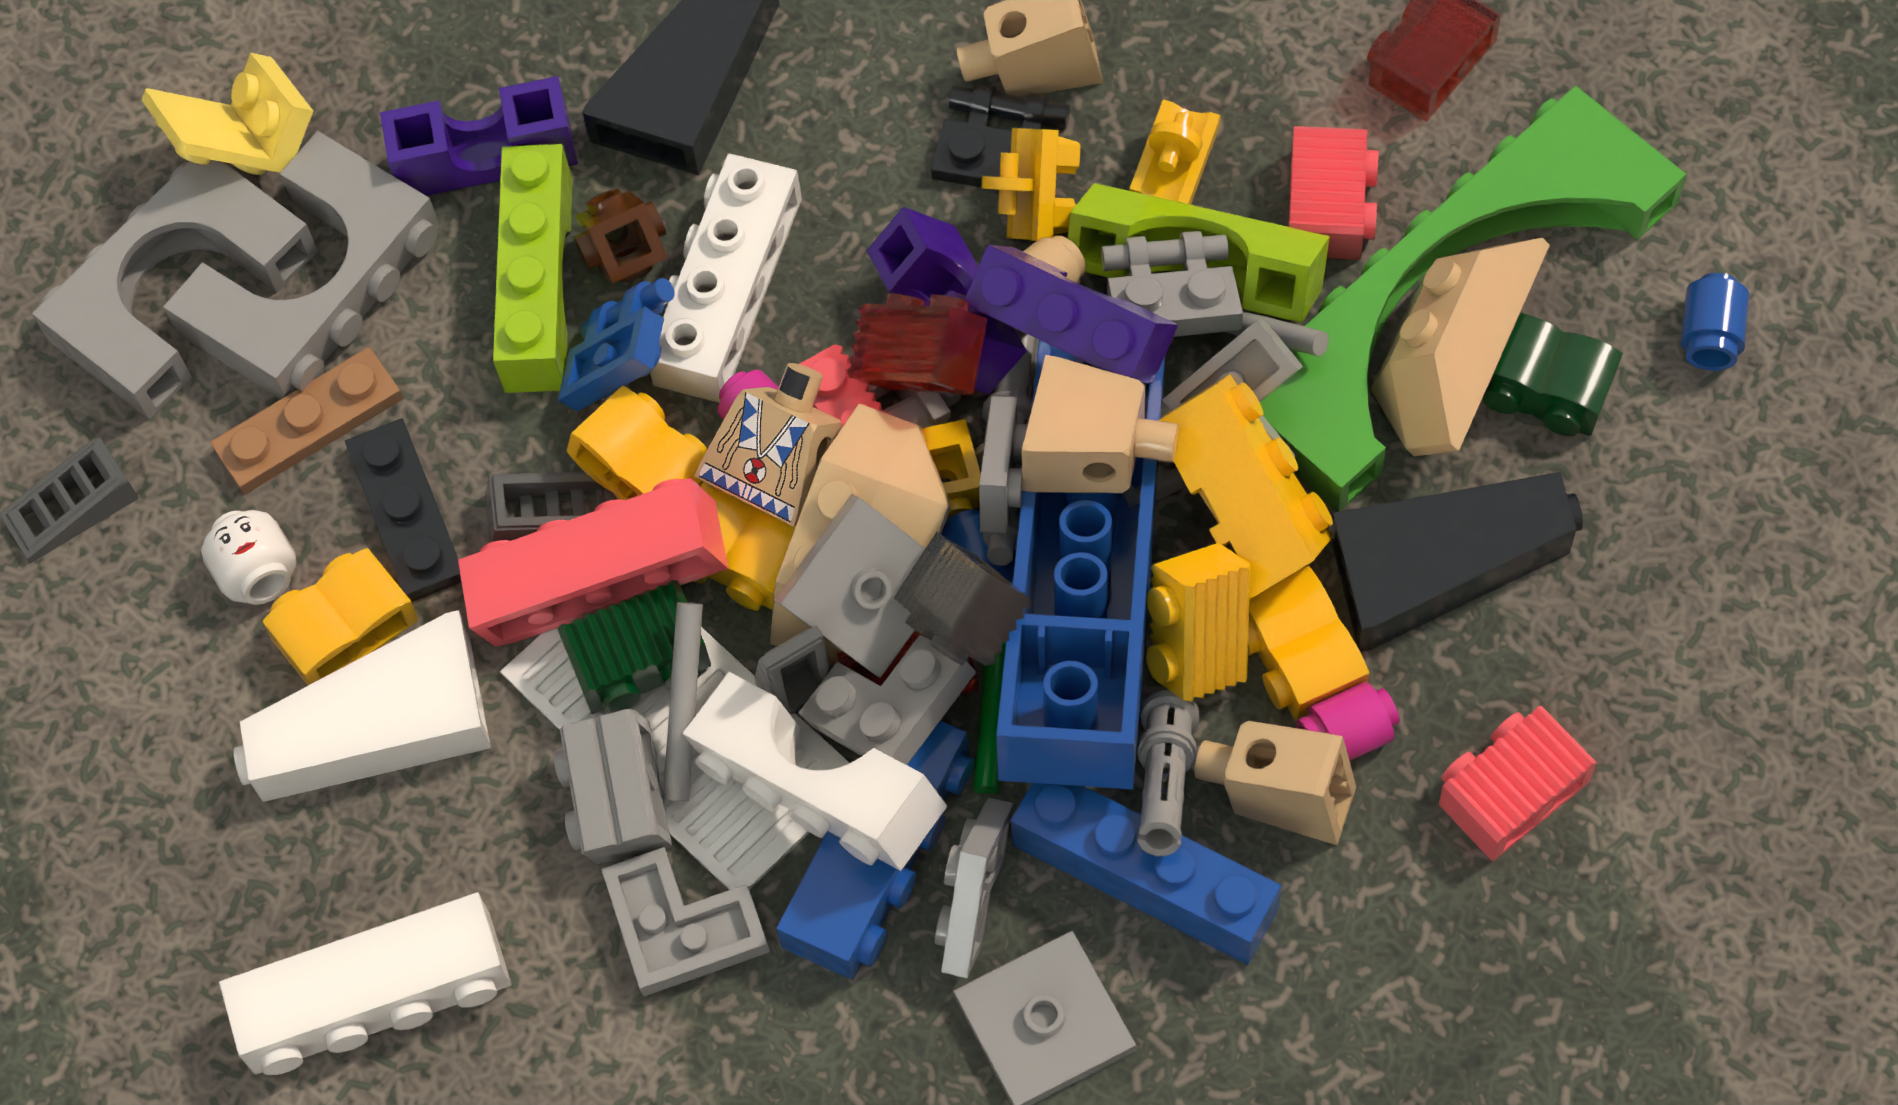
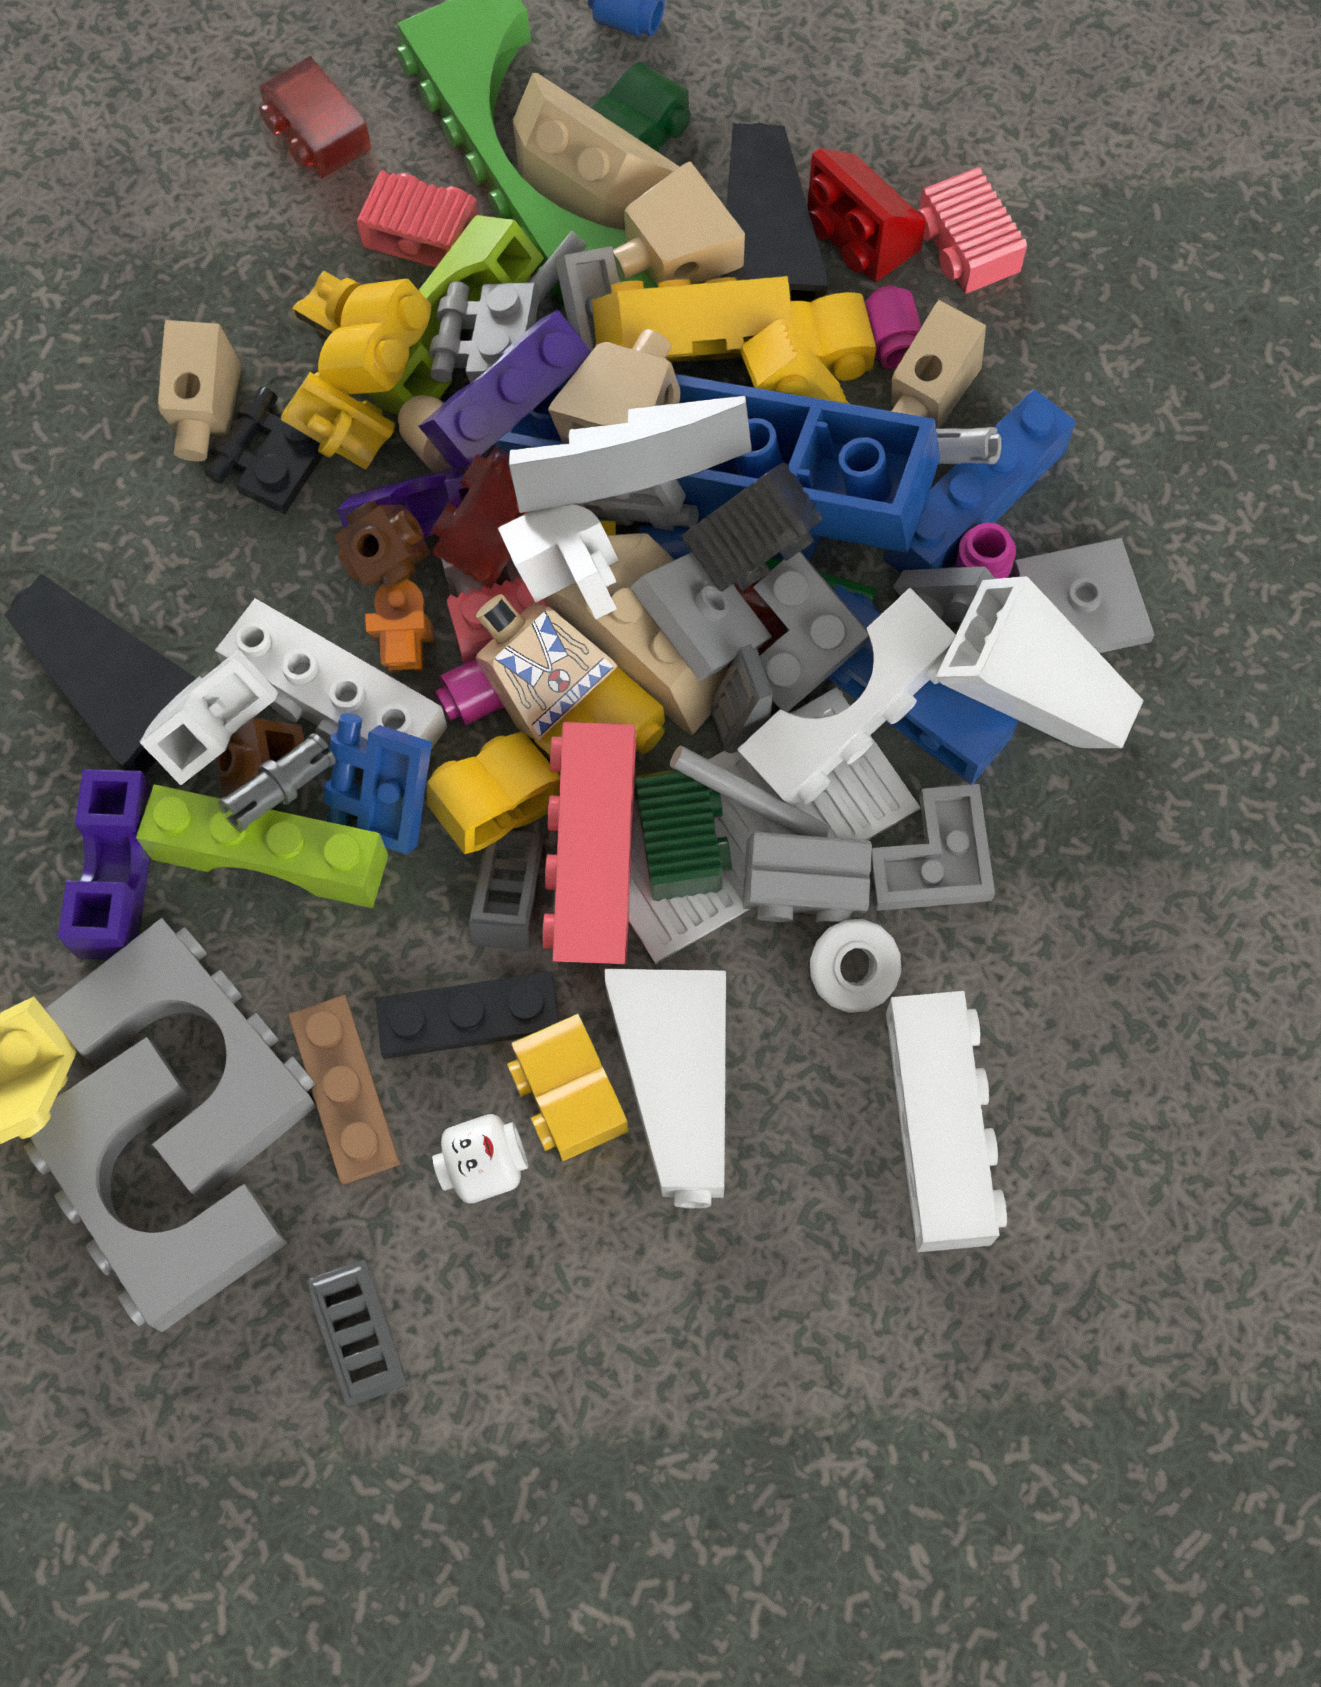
camera: 80 degrees left, 5 degrees up
(503, 863) = (882, 972): none -> white piece
(577, 244) = (276, 782): none -> dark grey pin
(636, 161) = (205, 715): none -> white brick
(794, 315) = (400, 626): none -> orange hips
(855, 247) = (399, 544): none -> reddish brown brick
(867, 419) = (563, 548): none -> white brick
(879, 944) = (1038, 667): none -> white slope
(992, 452) = (631, 456): none -> light grey slope
(1047, 870) = (987, 547): none -> dark pink brick
(1113, 177) = (374, 337): none -> yellow brick
(1361, 443) = (680, 232): none -> tan torso
(1489, 646) = (861, 214): none -> red slope

